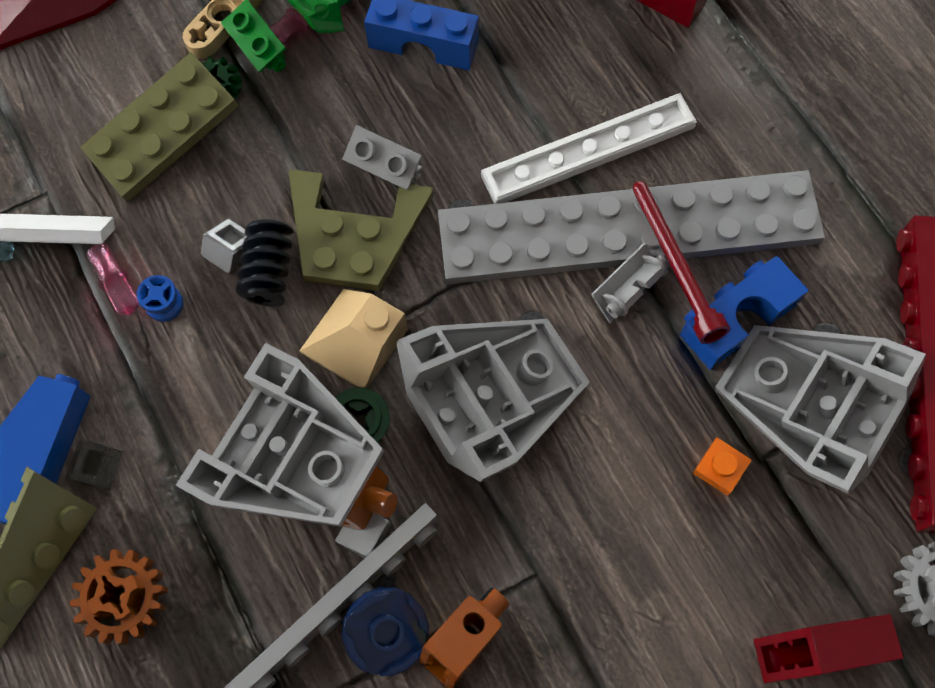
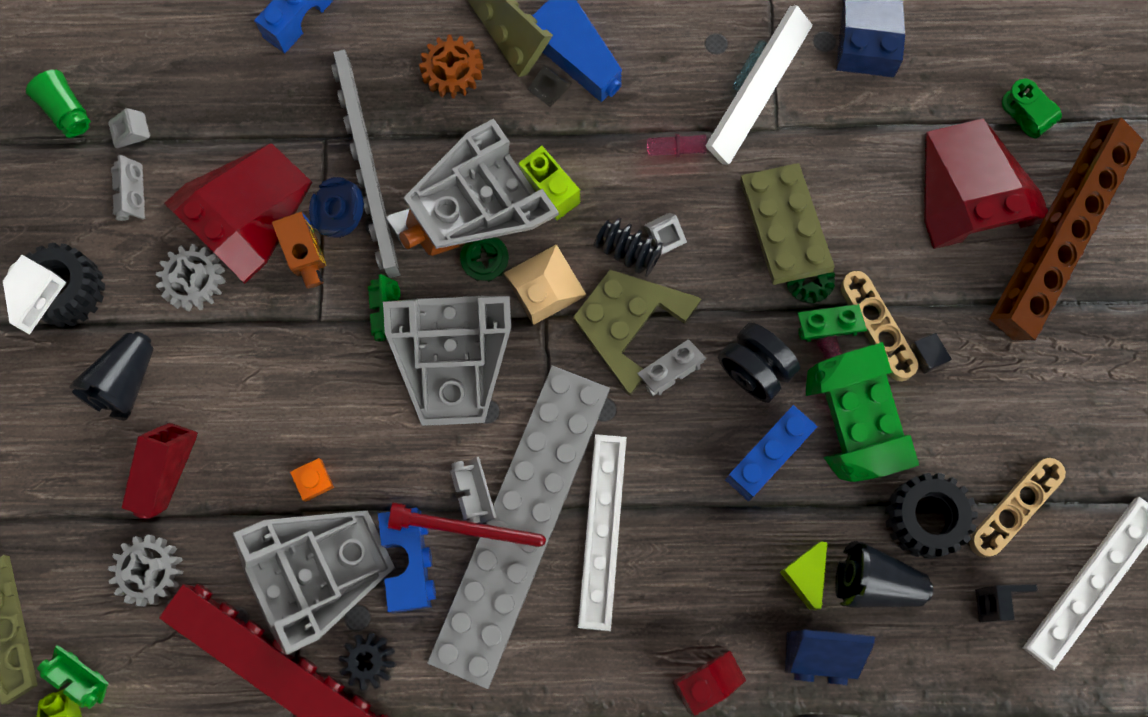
camera: 120 degrees right, 5 degrees up
(154, 290) = (649, 164): blue wheel -> none
(223, 385) = (546, 174): none -> lime slope
(334, 72) = (759, 362): none -> black wheel
(466, 504) = (380, 291): none -> green hinge
(864, 292) = (356, 663): none -> black gear

